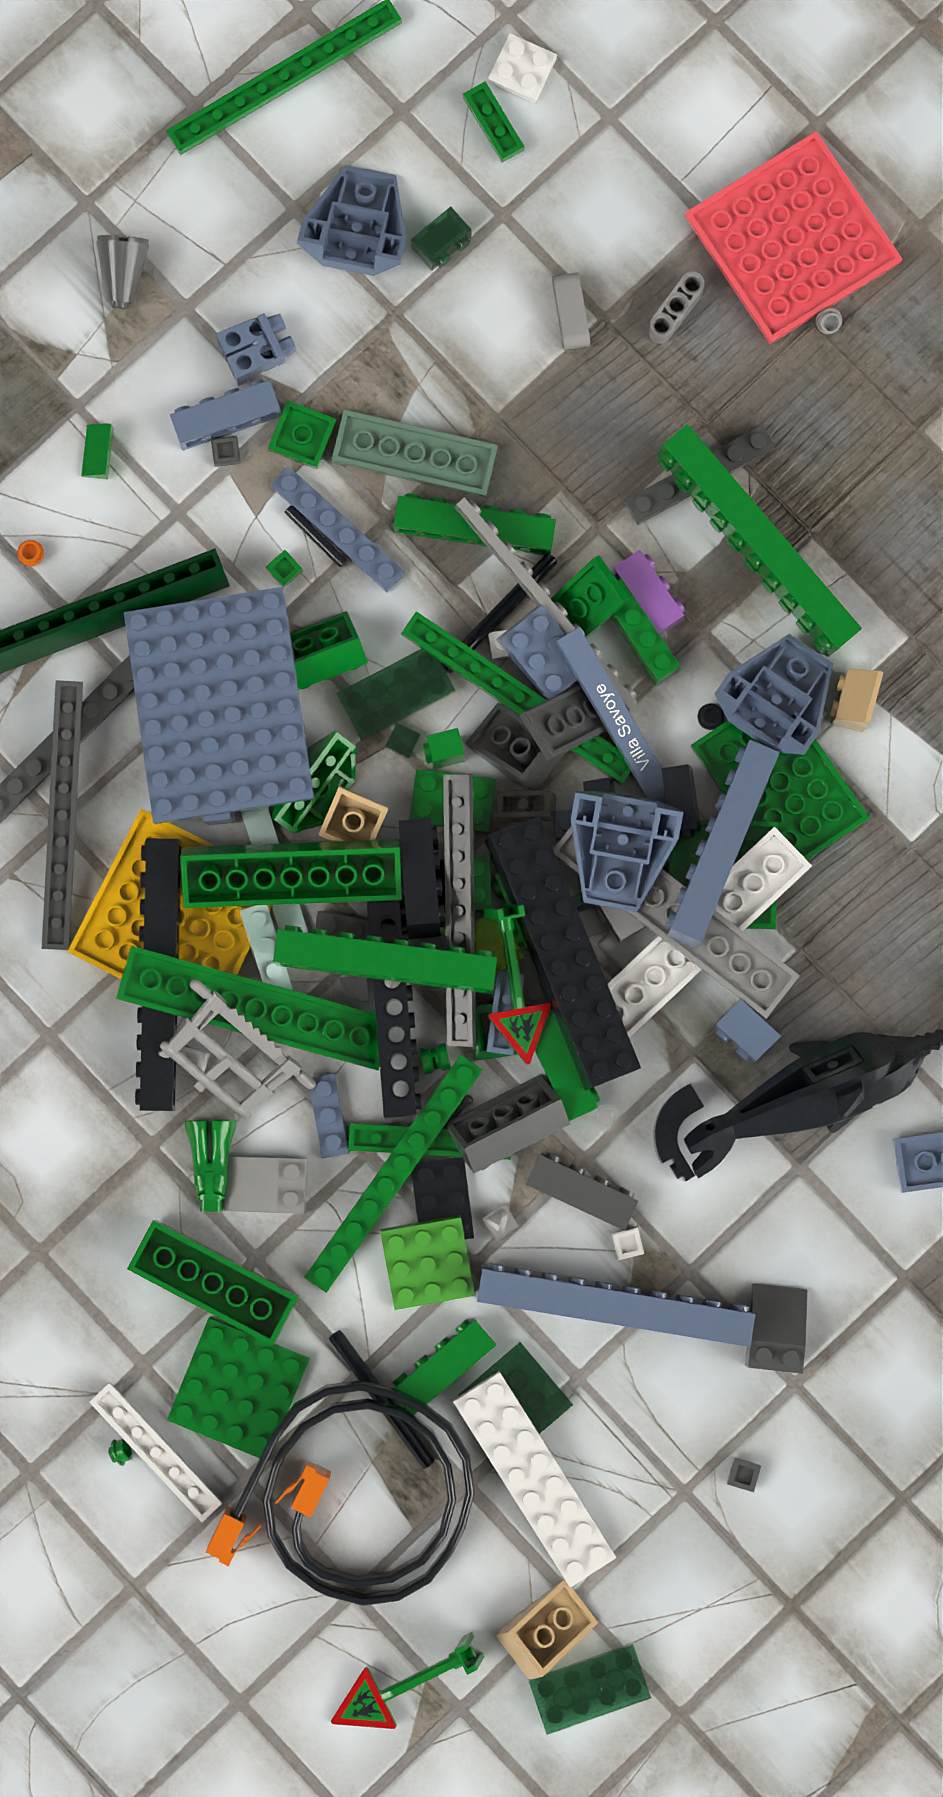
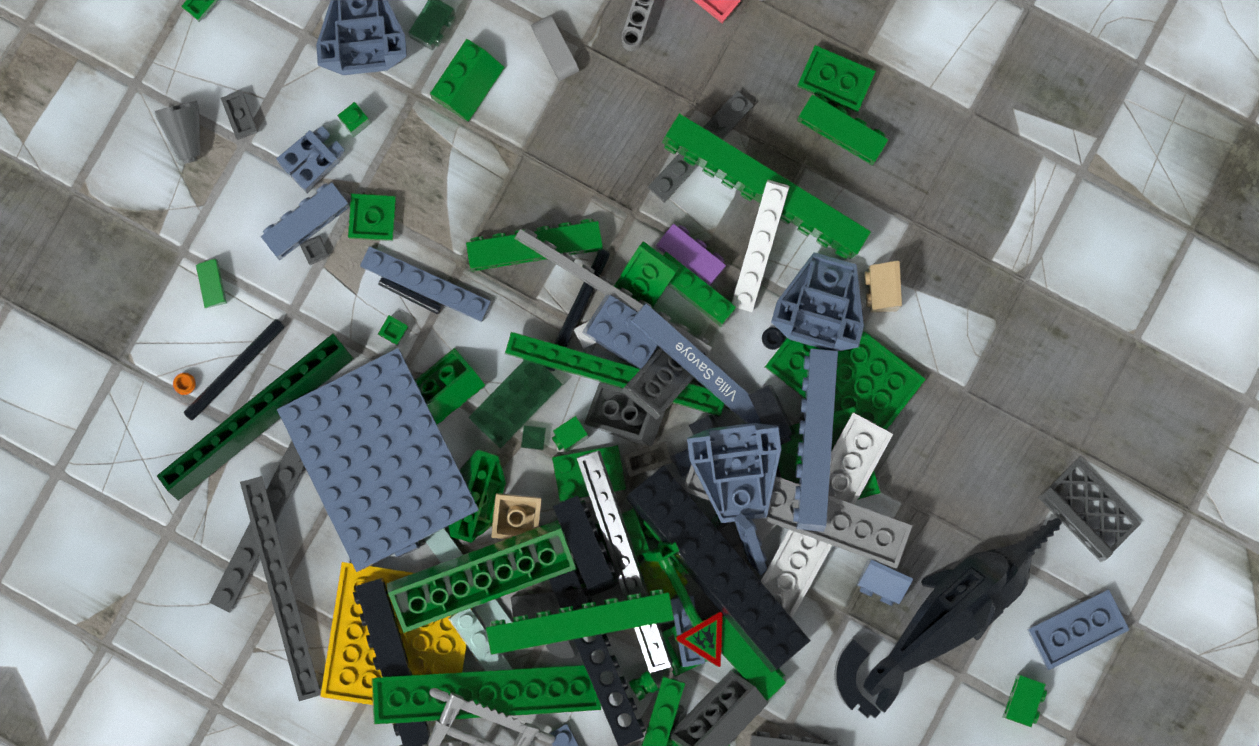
camera: 20 degrees left, 0 degrees up
(91, 555) = (233, 369): none -> black axle
(190, 272) = (239, 115): none -> dark grey plate
(318, 318) = (354, 119): none -> green brick
(414, 453) = (467, 203): sand green plate -> none
(459, 315) = (467, 80): none -> green slope
(610, 936) = (751, 543): none -> sand blue plate
(730, 604) = (760, 245): none -> white plate
(863, 1219) = (1024, 701): none -> green brick
(868, 506) = (842, 129): none -> green brick
(879, 447) = (836, 78): none -> green plate

